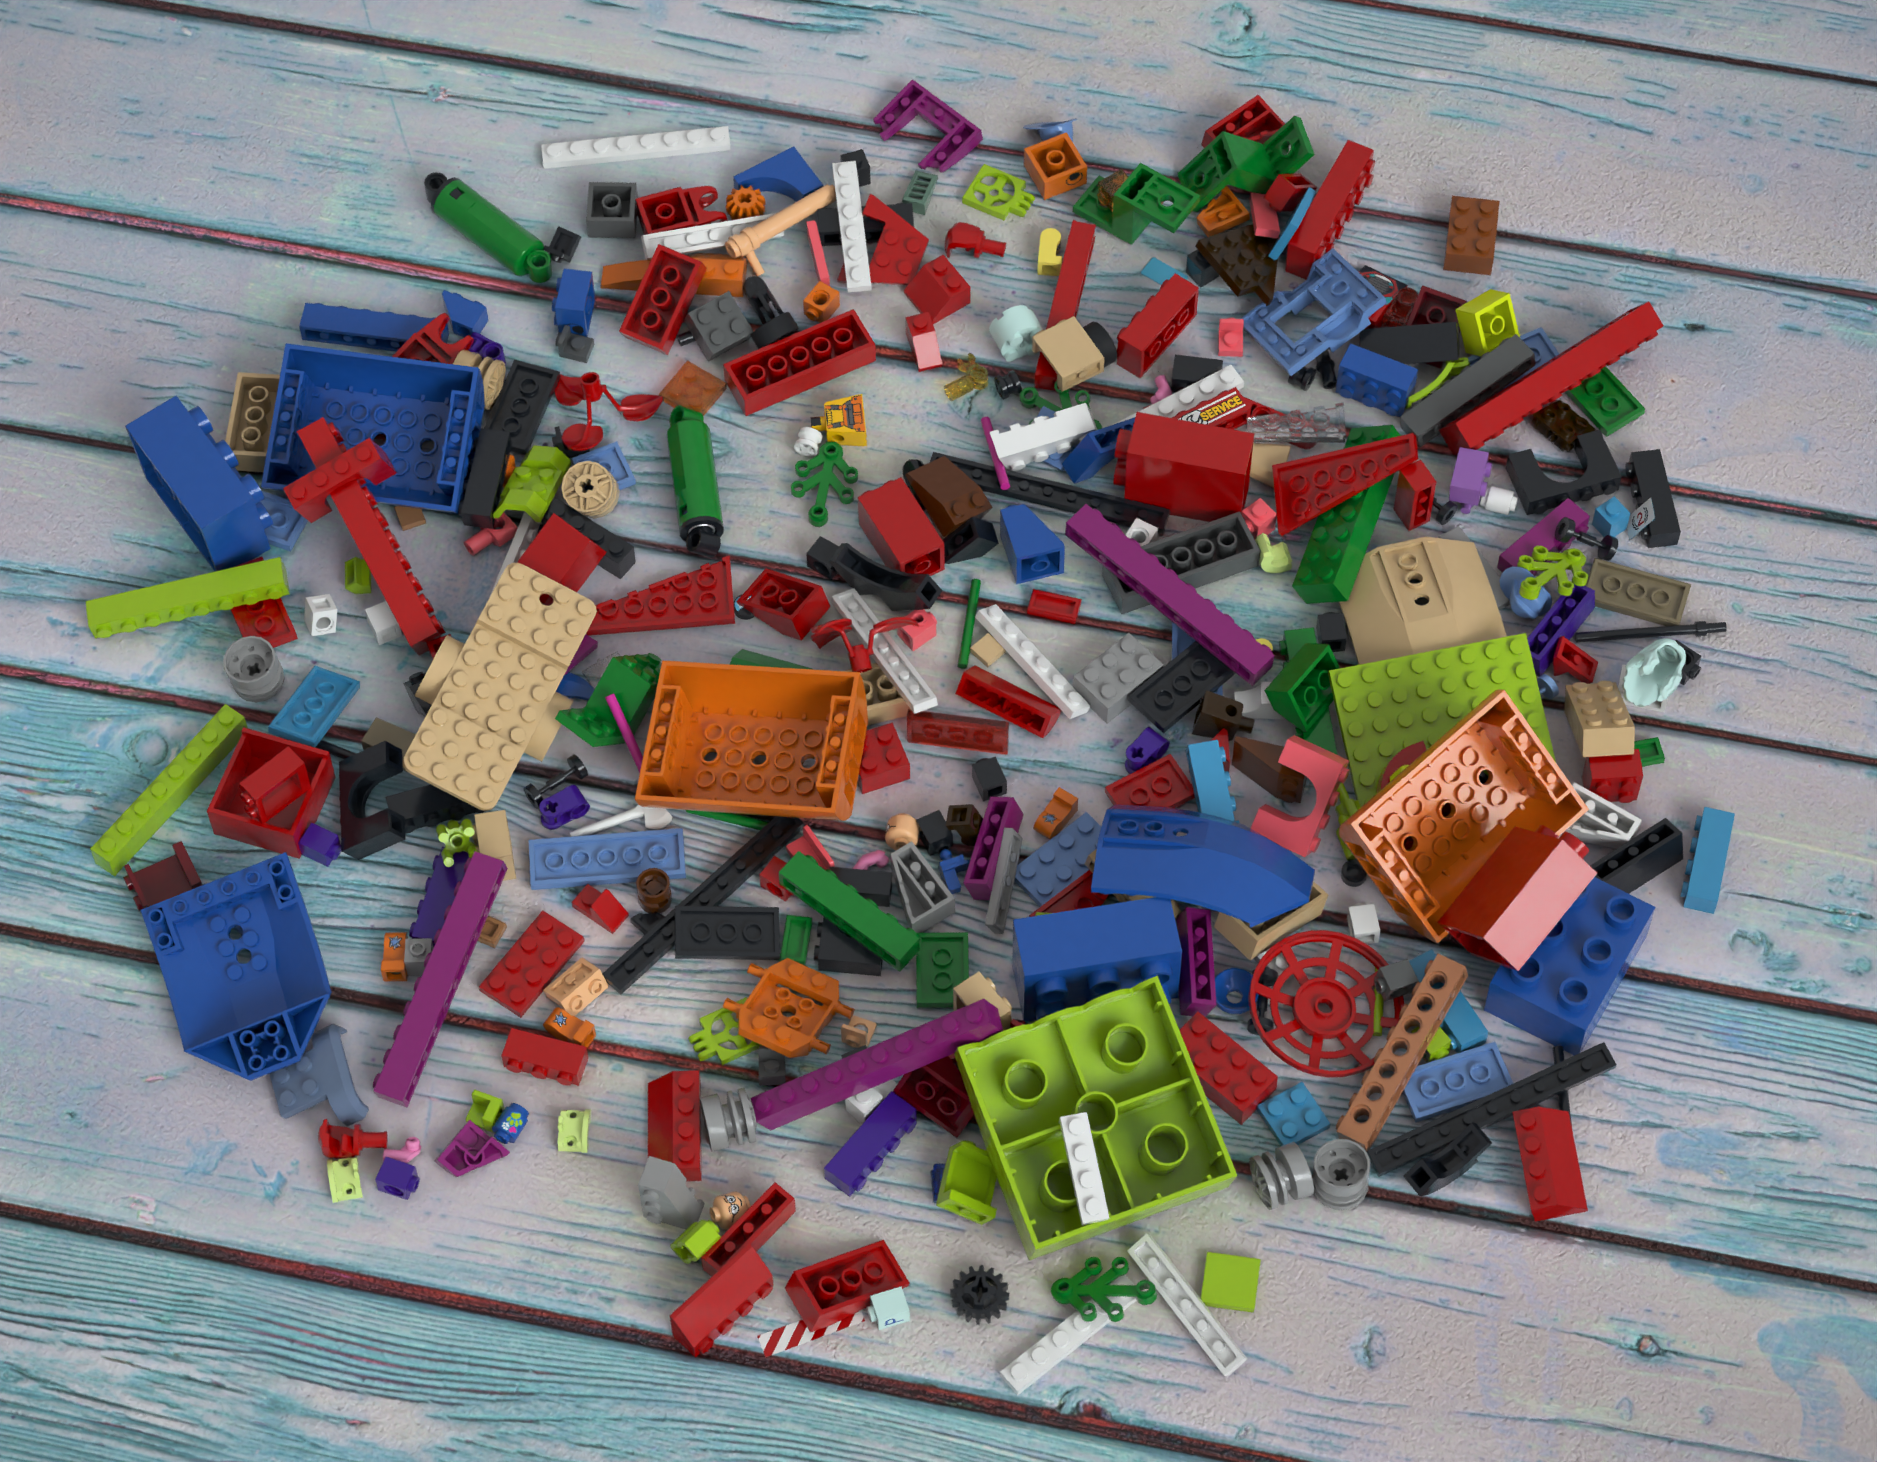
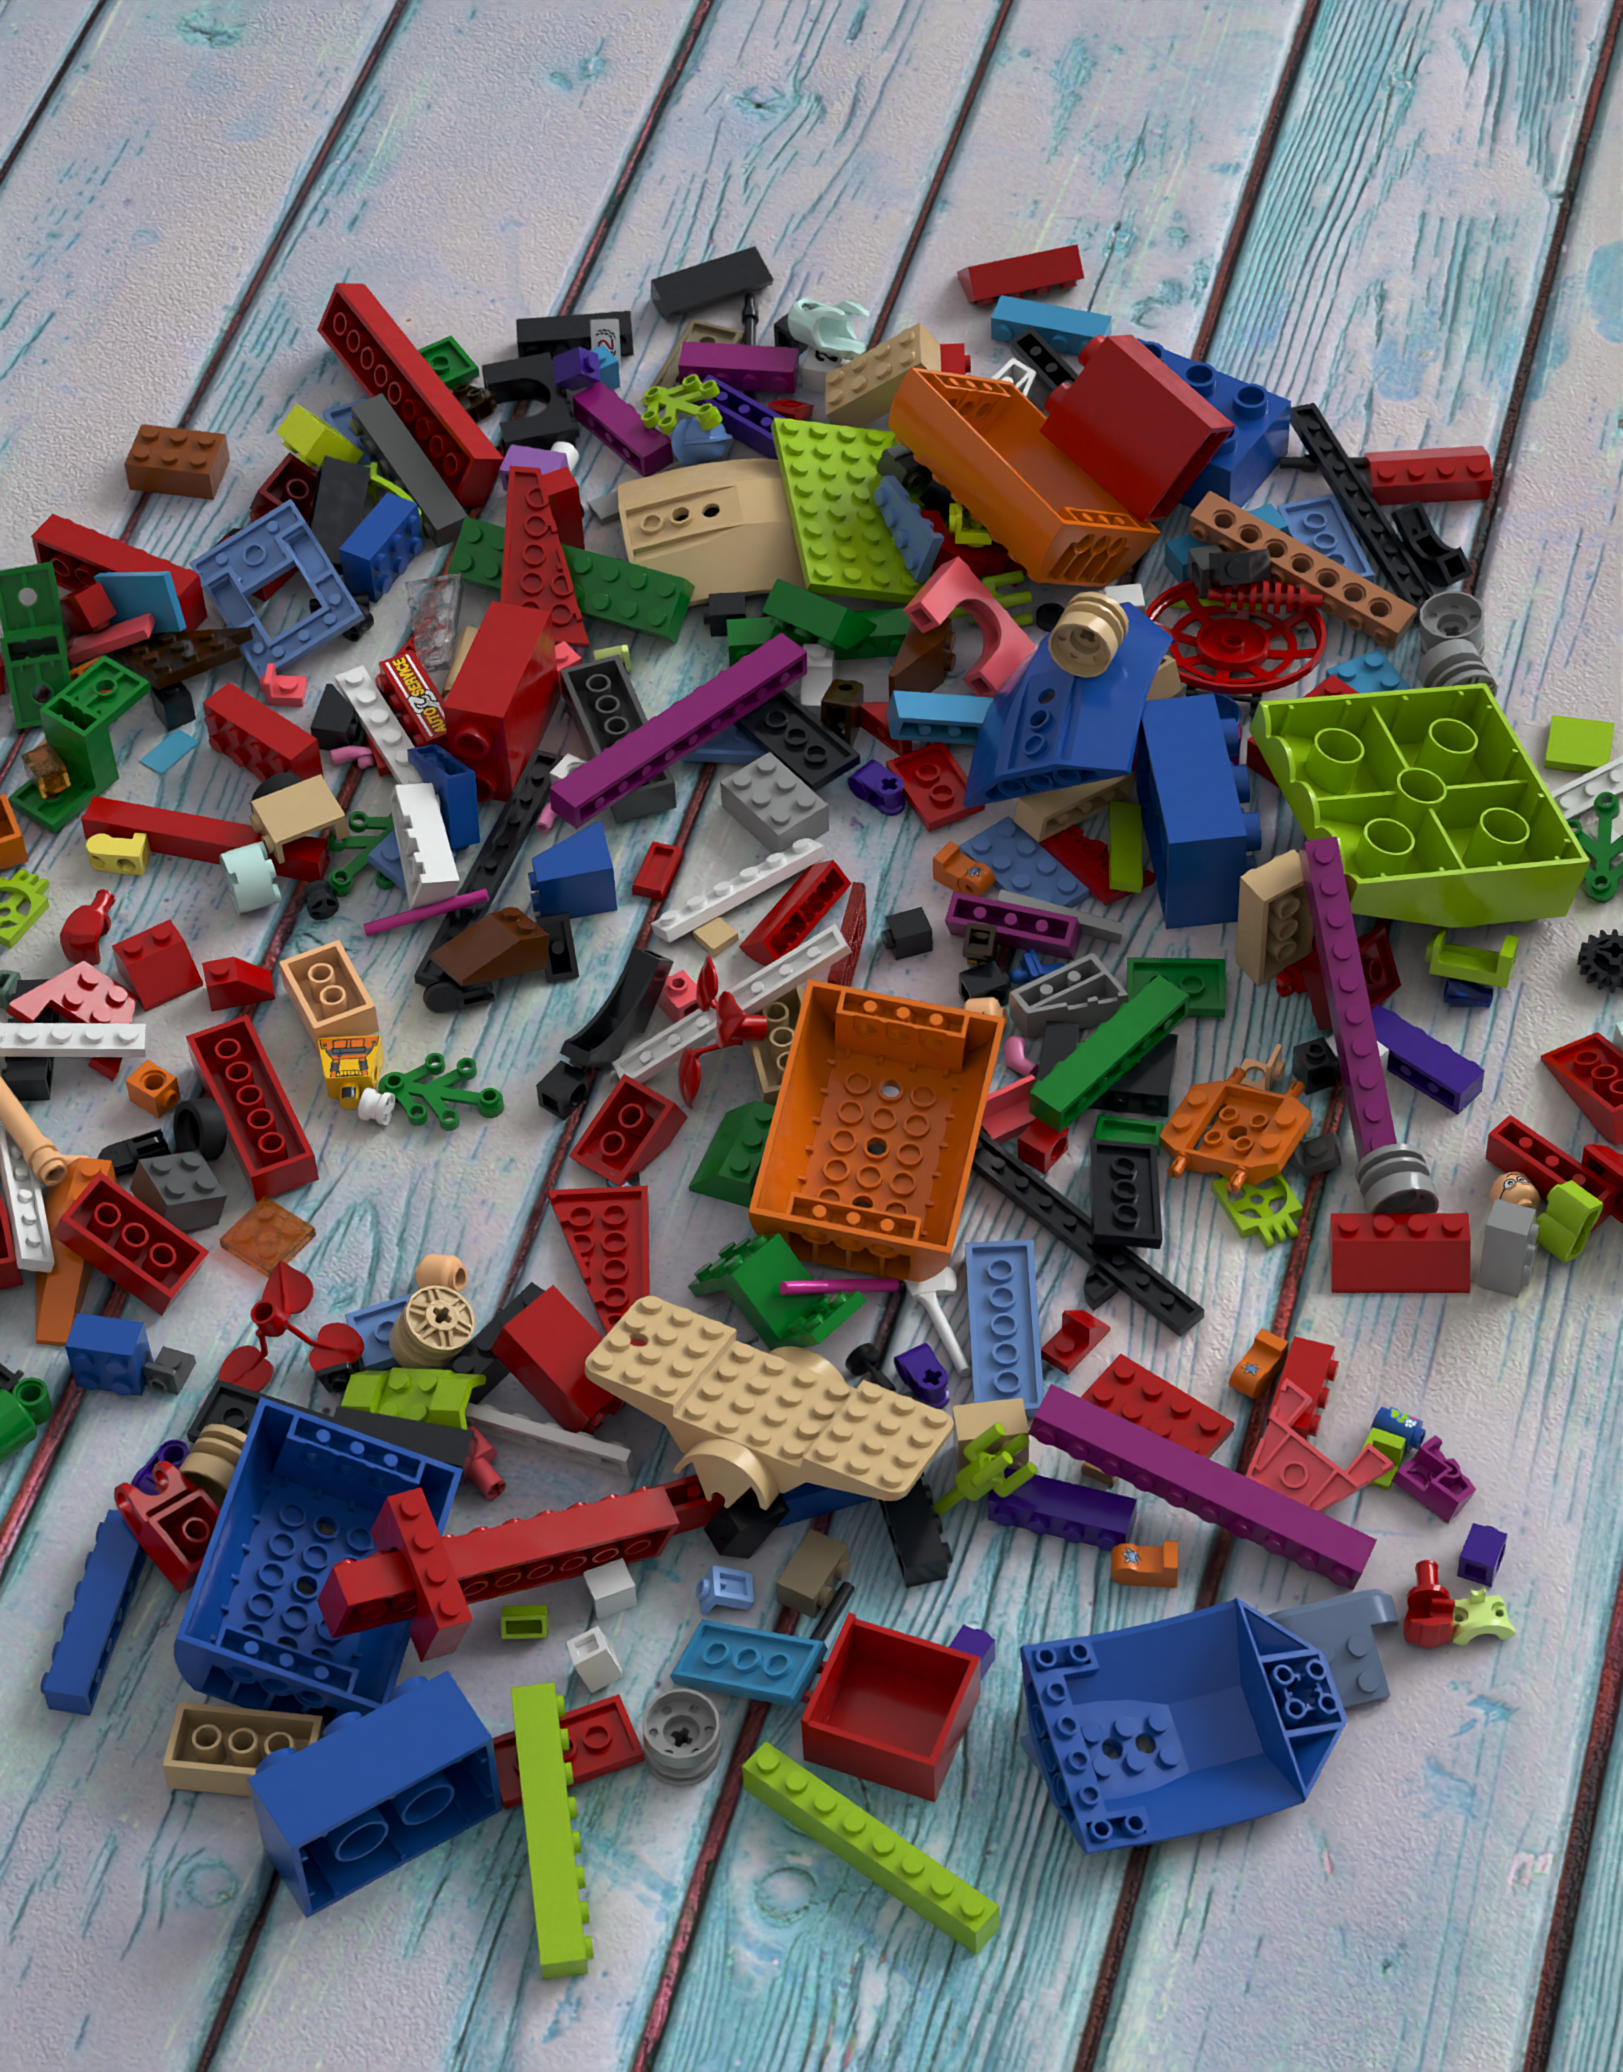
camera: 85 degrees left, 10 degrees down
(163, 878) = (1015, 1852): dark red panel -> none
(274, 785) = (917, 1656): red window -> none
(357, 778) = (959, 1604): black arch -> none
(381, 693) = (725, 1588): none -> light blue bracket
(406, 1153) = (1441, 1551): bright pink arm -> none
(415, 955) = (1151, 1525): light grey brick -> none
(464, 314) = (89, 1499): blue slope -> none
(468, 1049) = (1300, 1470): none -> coral wing
(574, 1130) = (1402, 1358): yellowish green piece -> none
(577, 987) = (1193, 1361): light nougat bracket -> none
(651, 496) = (441, 1271): none -> light nougat head
(654, 890) = (1060, 1270): reddish brown wheel -> none
(695, 481) = (428, 1221): green piece -> none
(817, 252) = (74, 1092): coral tile -> none
(900, 529) = (539, 1001): red brick -> none
(906, 398) = (328, 993): none -> light nougat brick
(969, 623) = (675, 953): green bar -> none
(975, 377) = (296, 934): clear yellow bar -> none
(1084, 1168) = (1494, 800): white plate -> none
(1214, 841) = (1088, 634): none -> tan wheel
(1363, 1023) = (1264, 597): none -> red piece
(1379, 994) = (1239, 567): none -> black slope
(1398, 742) = (911, 532): none -> medium blue wing
(1592, 494) = (576, 369): none -> dark purple brick
(1606, 548) = (626, 390): black wheel -> none
(1618, 617) = (742, 365): none -> magenta brick
(1732, 594) = (710, 283): none -> black brick
(1777, 833) = (1022, 274): none -> red slope

